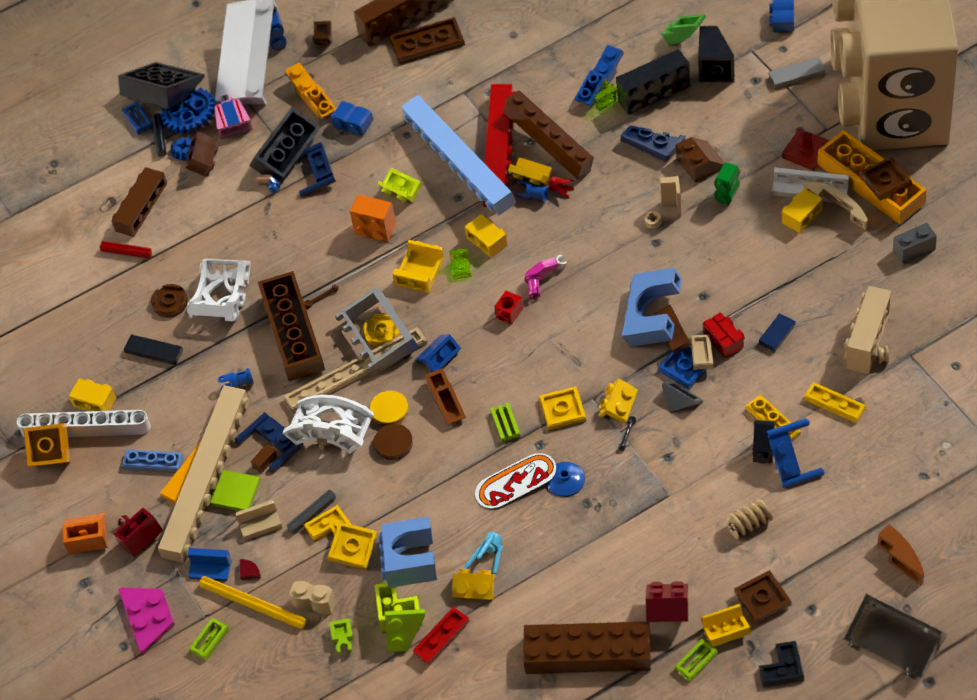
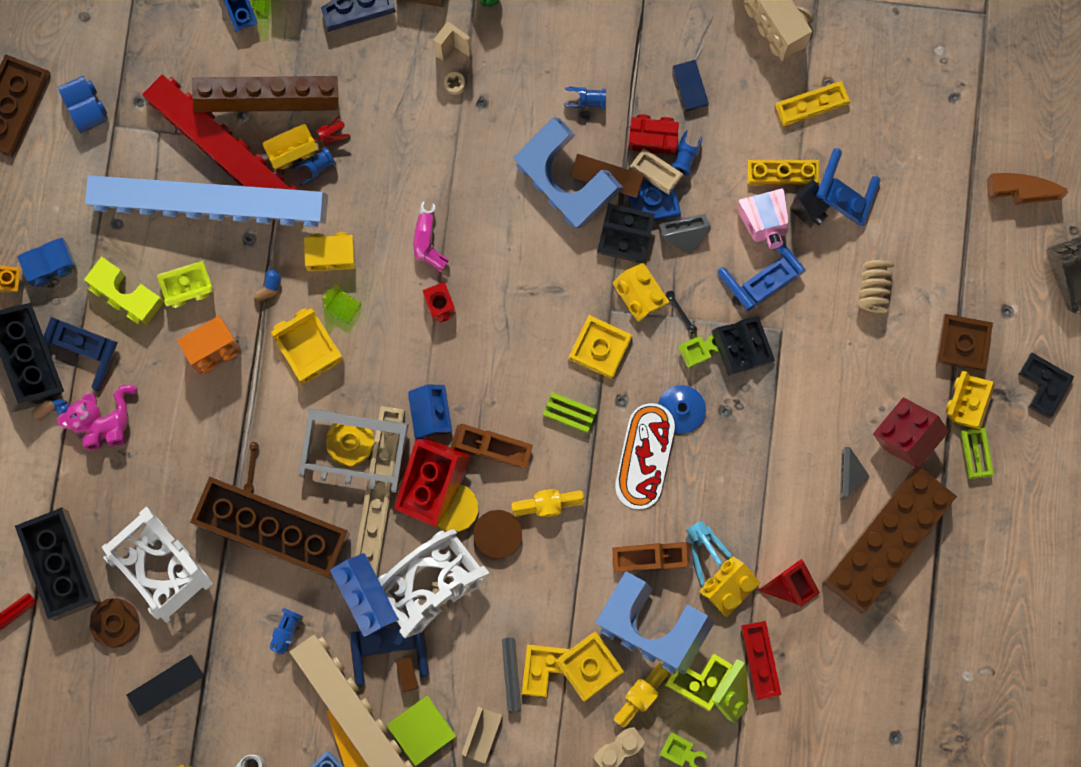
camera: 60 degrees left, 25 degrees up
(179, 246) = (57, 564): none -> black brick
(277, 209) = (85, 417): none -> dark pink animal
(290, 394) = (364, 594): none -> blue brick
(357, 586) = (641, 695): none -> yellow axle
(367, 150) = (105, 280): none -> neon yellow arch
(394, 379) = (430, 480): none -> red slope
(436, 450) = (548, 503): none -> yellow axle
(437, 226) = (270, 288): none -> arm
(454, 530) = (653, 557): none -> dark orange slope
(459, 67) = (81, 103): none -> blue brick
(507, 615) = (793, 585): none -> red slope
(609, 456) = (697, 351): none -> lime plate
(610, 597) = (852, 473): none -> dark grey slope
(637, 479) = (743, 345): none -> black slope
(646, 366) = (625, 233): none -> black slope
(693, 460) = (767, 281): none -> blue plate
(713, 287) = (591, 98): none -> blue piece
(729, 360) = (686, 155): none -> blue piece
(732, 427) = (765, 217): none -> torso

